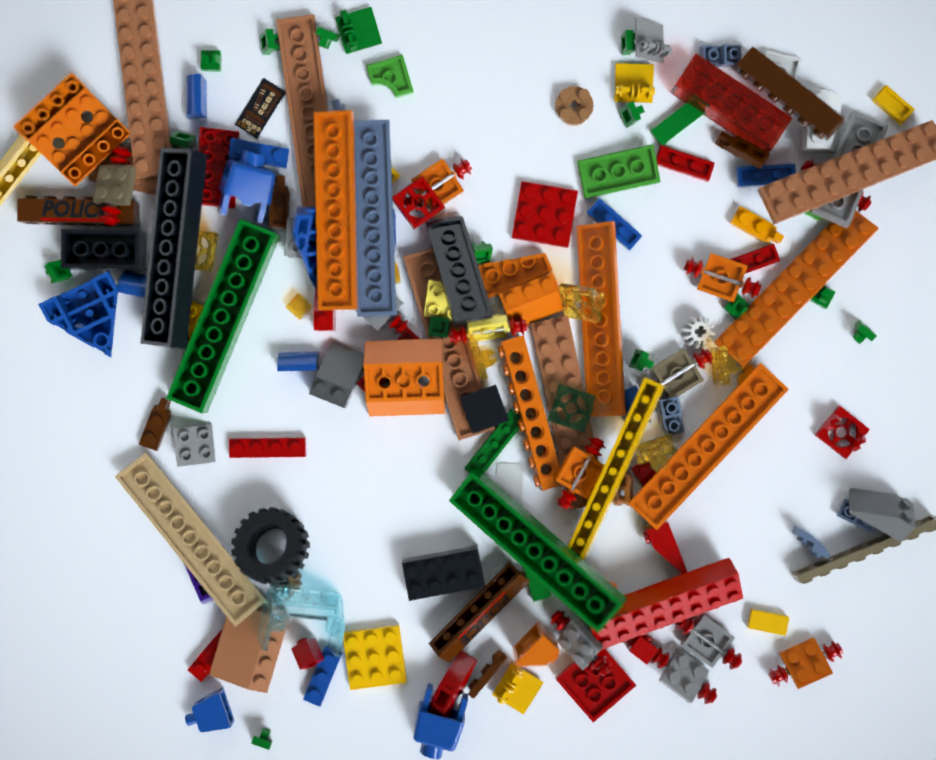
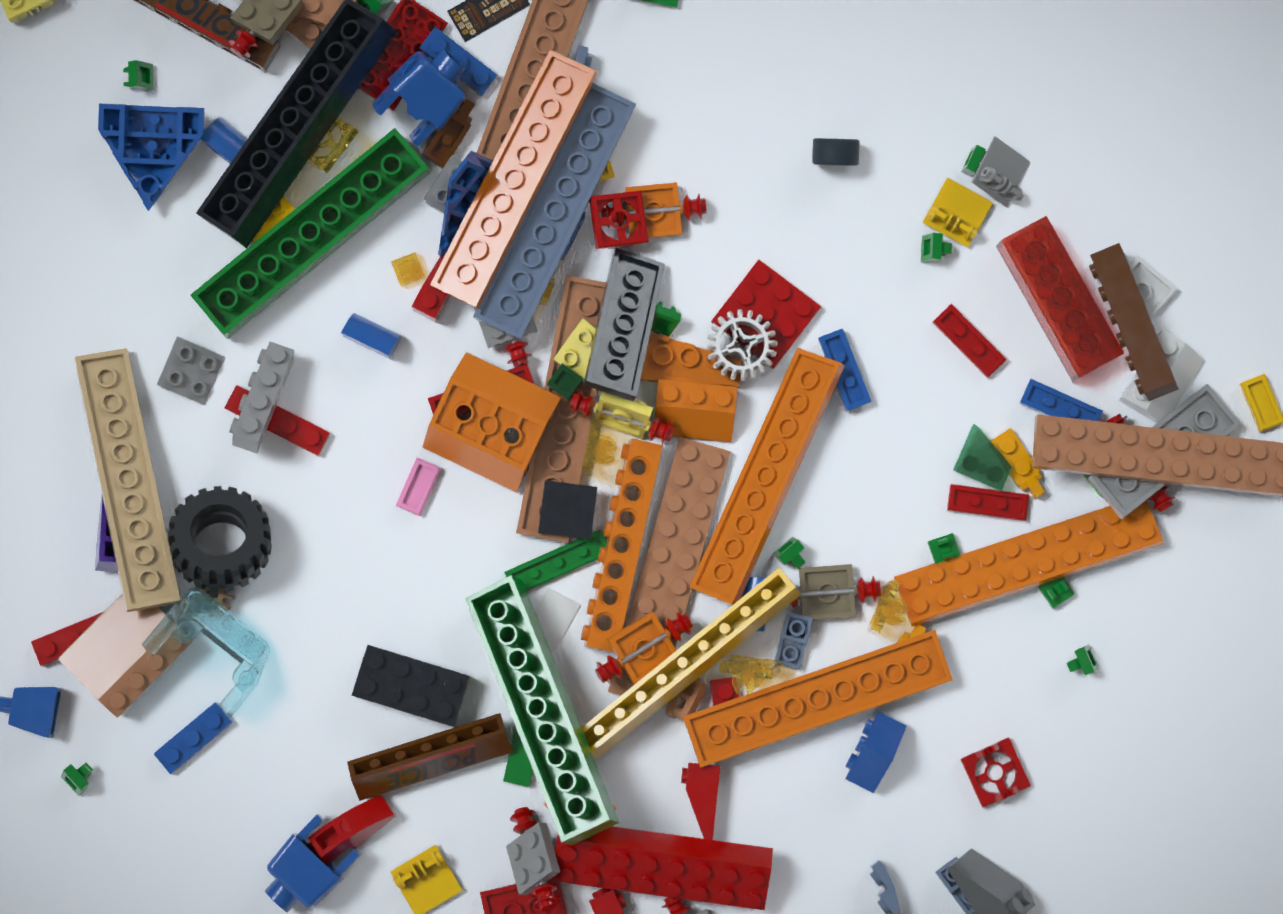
camera: 25 degrees right, 5 degrees down
(103, 250) = (210, 79): black brick -> none
(156, 425) = (156, 322): reddish brown hinge -> none
(249, 439) = (263, 397): none -> light grey brick
(307, 653) = (191, 697): red brick -> none
(338, 375) = (411, 376): dark grey slope -> none
(374, 657) = (269, 748): yellow plate -> none
(380, 442) = (418, 486): none -> bright pink tile
(391, 74) = (669, 50): bright green tile -> none
(487, 673) = (399, 840): reddish brown hinge -> none
(535, 83) = (835, 151): none -> black wheel
(536, 647) = (479, 833): orange slope -> none
(548, 249) = (752, 340): none -> white gear
(566, 113) = (866, 187): medium nougat plate -> none
(571, 293) = (743, 426): clear yellow piece -> none
(579, 425) = (647, 563): clear green piece -> none
(619, 171) = (883, 309): bright green tile -> none
(675, 123) = (983, 287): green tile -> none
(696, 324) = (882, 563): white gear -> none
(722, 55) = (1079, 234): sand blue slope -> none
(722, 277) = (942, 502): orange plate -> none
(734, 236) = (982, 460): none -> clear green wing
(743, 149) = (1047, 361): reddish brown hinge -> none
(763, 460) = (874, 751): none -> blue brick

